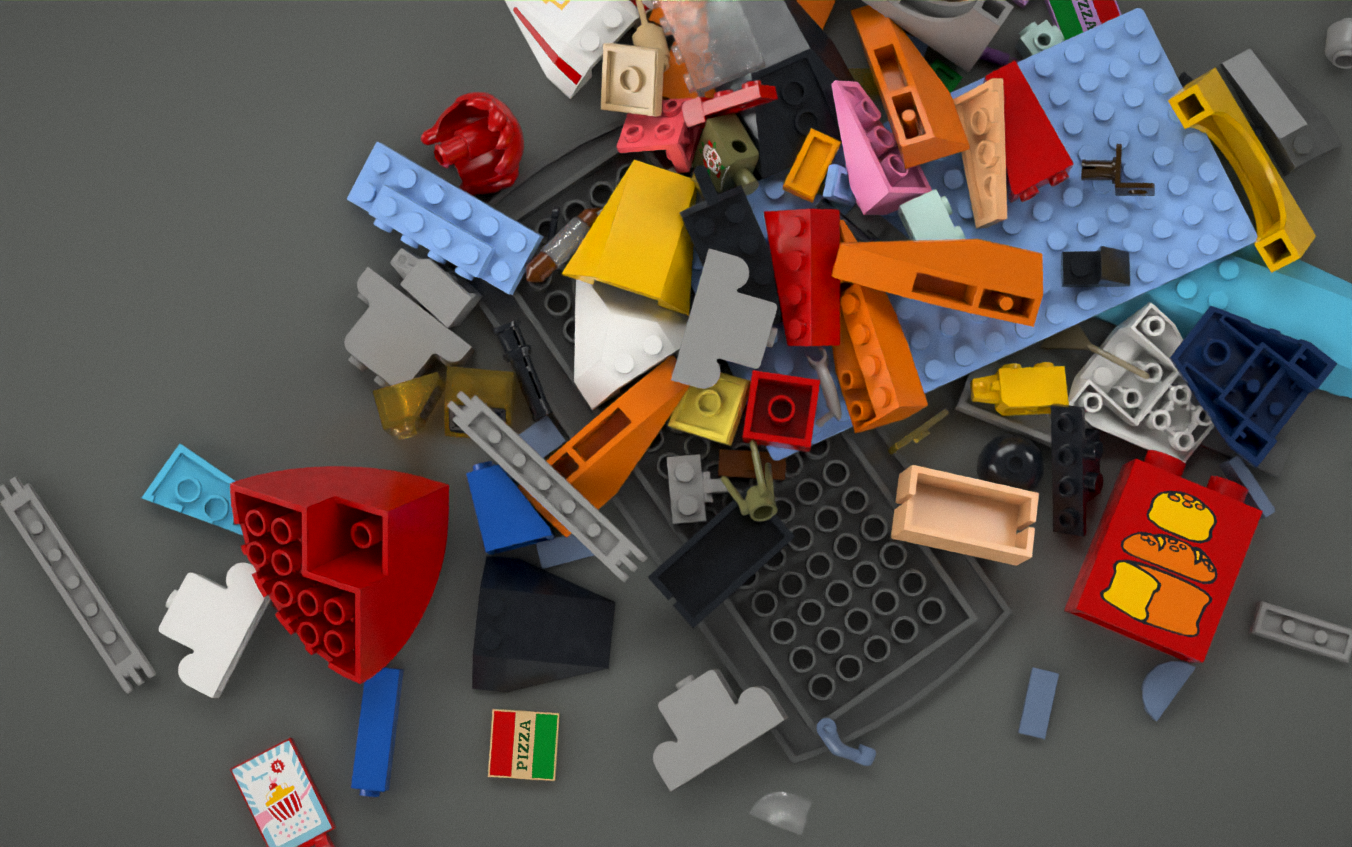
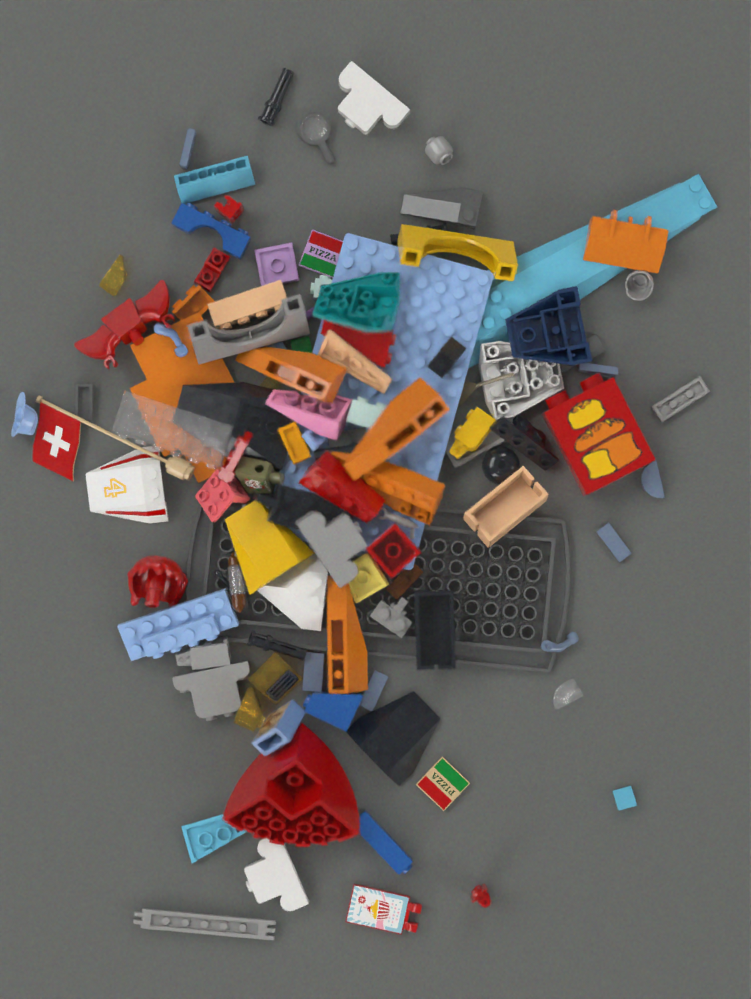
camera: 50 degrees left, 5 degrees up
(416, 459) = (278, 727): none -> medium blue brick
(546, 485) = (339, 680): light grey hinge -> none
(632, 79) = (187, 489): tan tile -> none
(711, 724) = (503, 694): light grey brick -> none
(760, 498) = (425, 593): olive plant -> none
(919, 433) = (452, 494): clear yellow piece -> none
(1073, 97) = (361, 302): none -> teal wedge
(1113, 171) = (409, 313): dark brown bracket -> none

